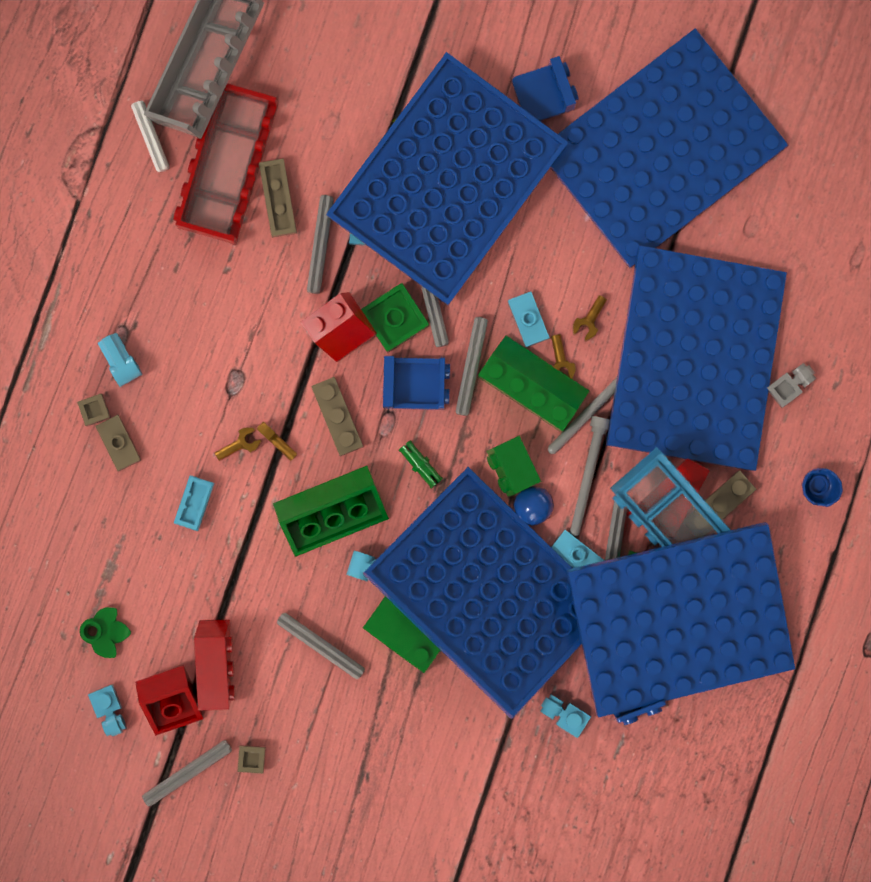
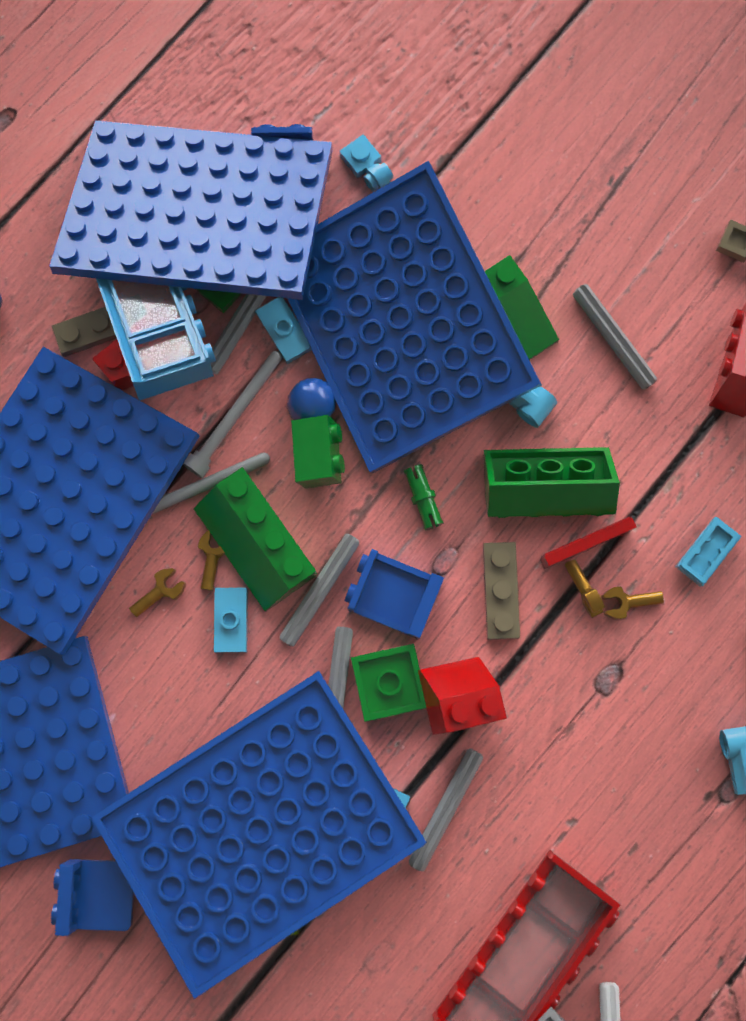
camera: 160 degrees left, 5 degrees down
(277, 198) = (477, 890): dark tan plate -> none
(286, 475) = (588, 542): none -> red tile

